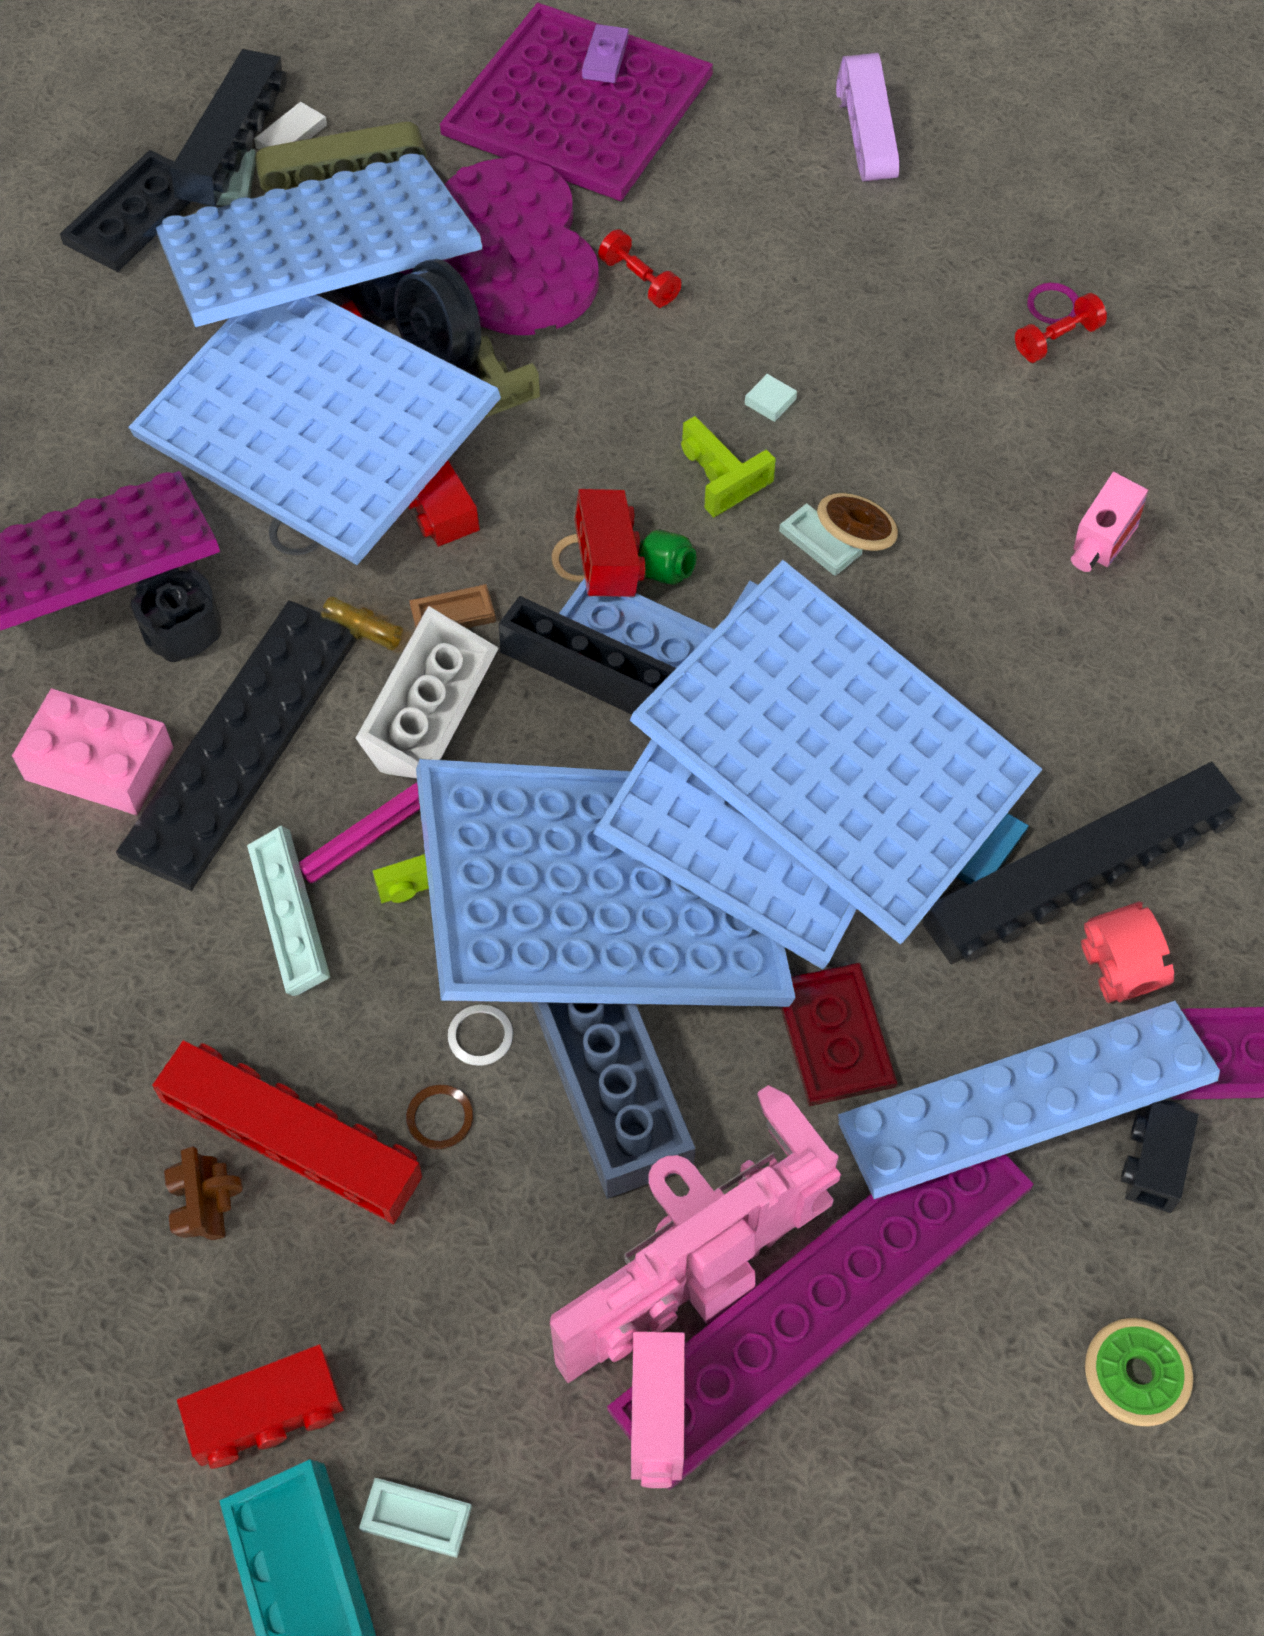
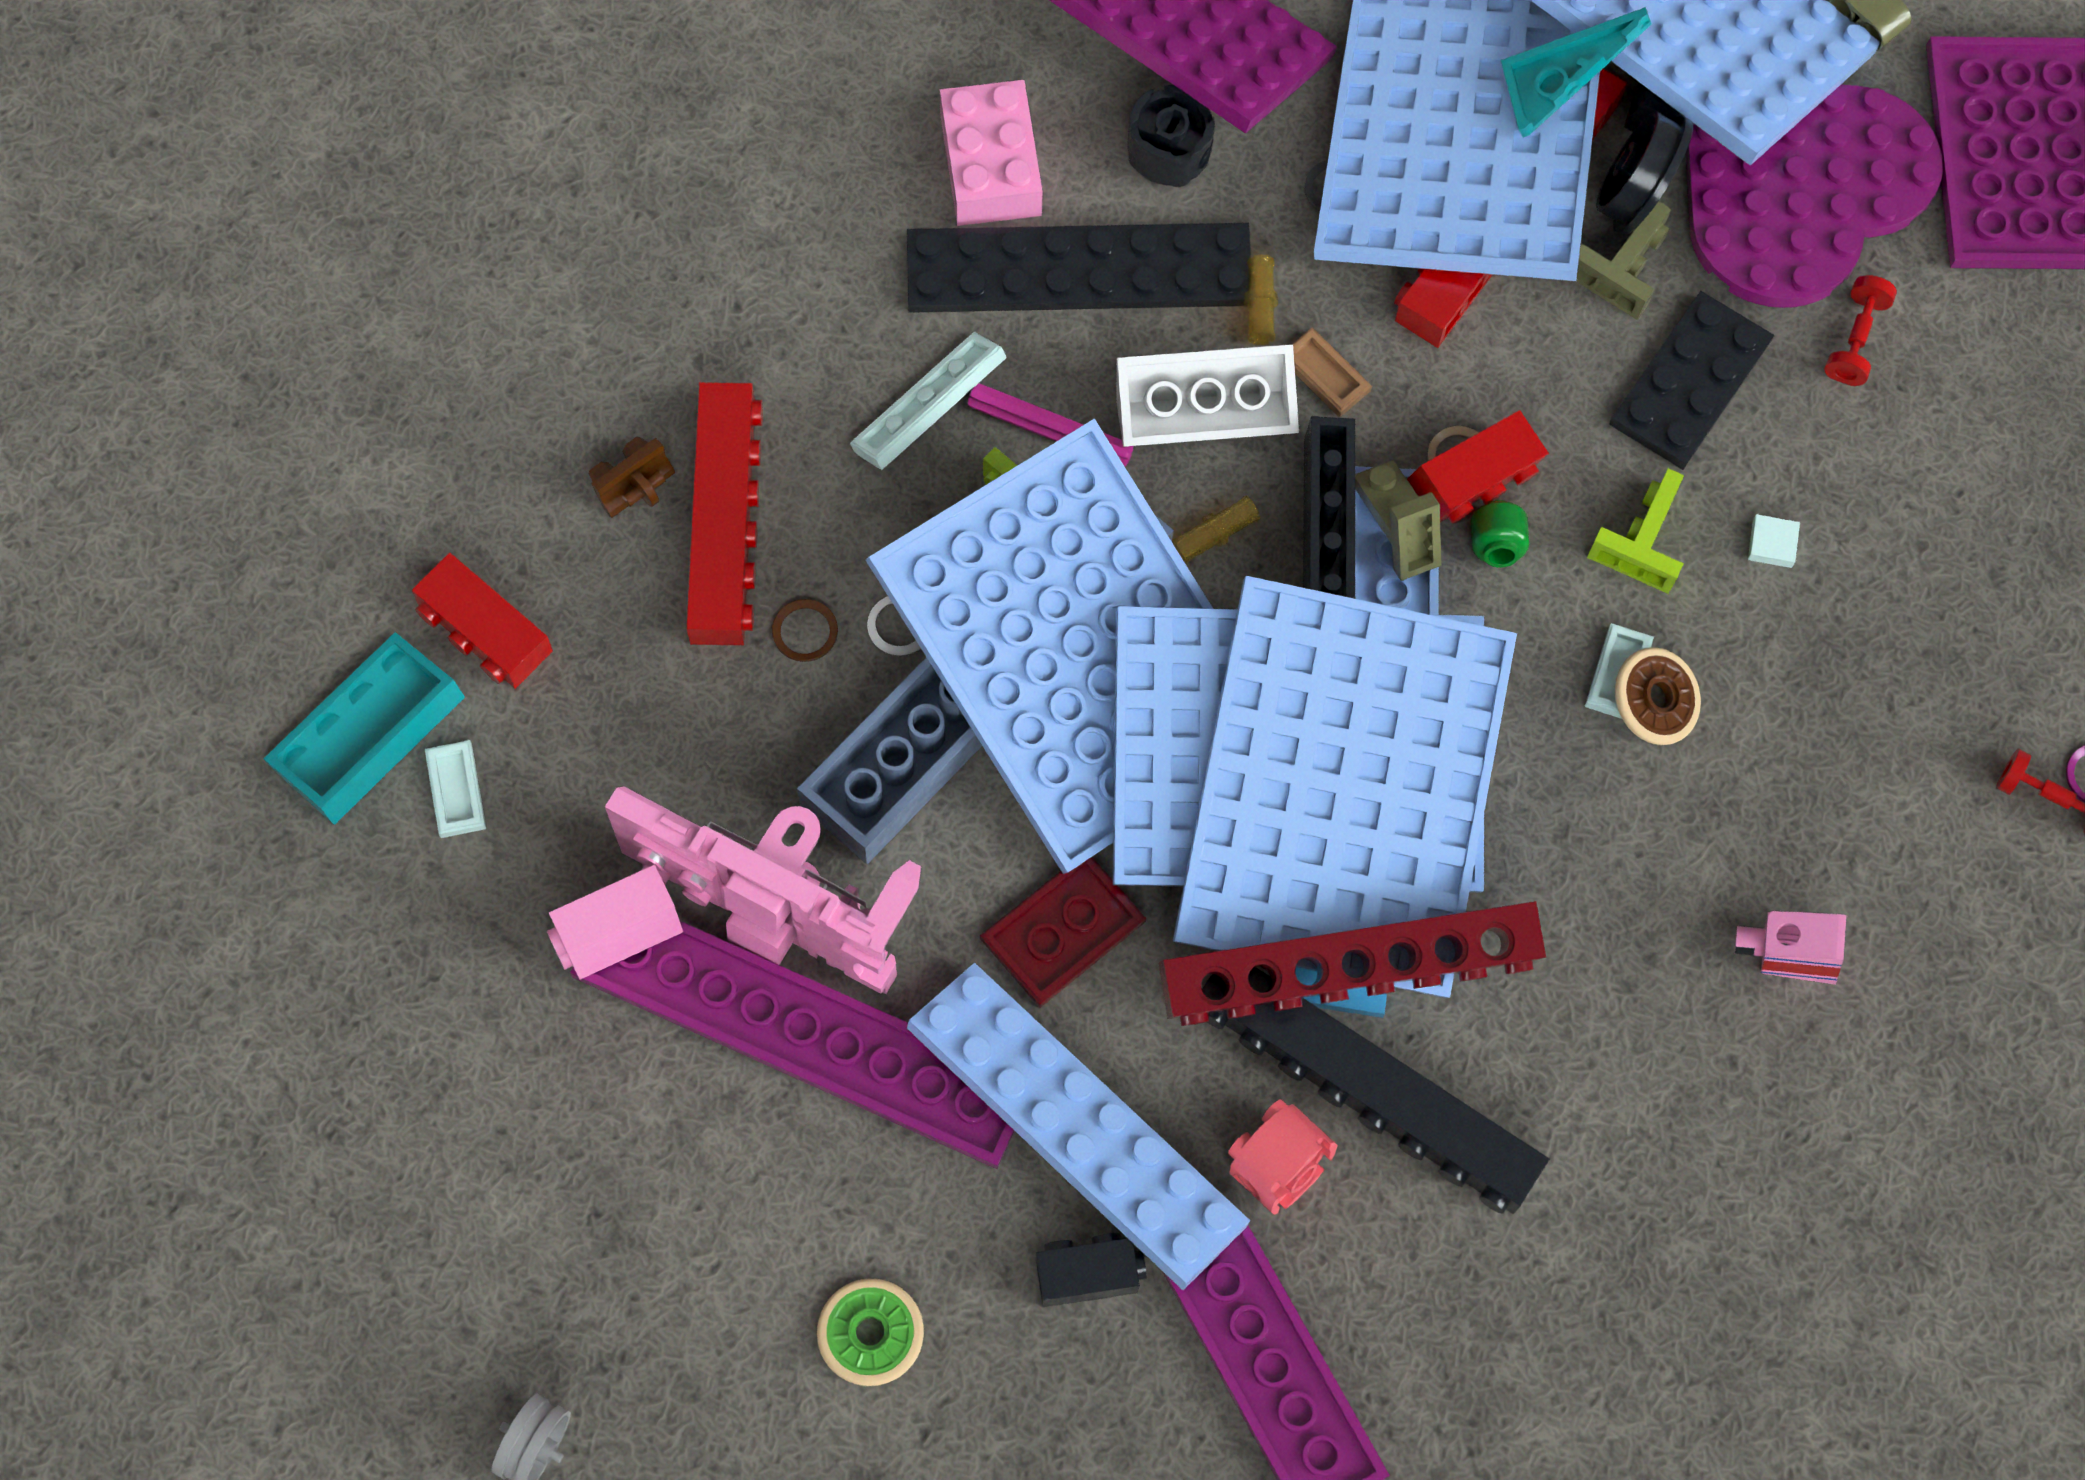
camera: 60 degrees right, 10 degrees up
(322, 323) = (1555, 71): none -> teal wing
(542, 745) = (1216, 529): none -> clear yellow pin
(612, 385) = (1691, 380): none -> black plate
(624, 603) = (1405, 518): none -> olive bracket
(1015, 716) = (1515, 925): none -> dark red brick

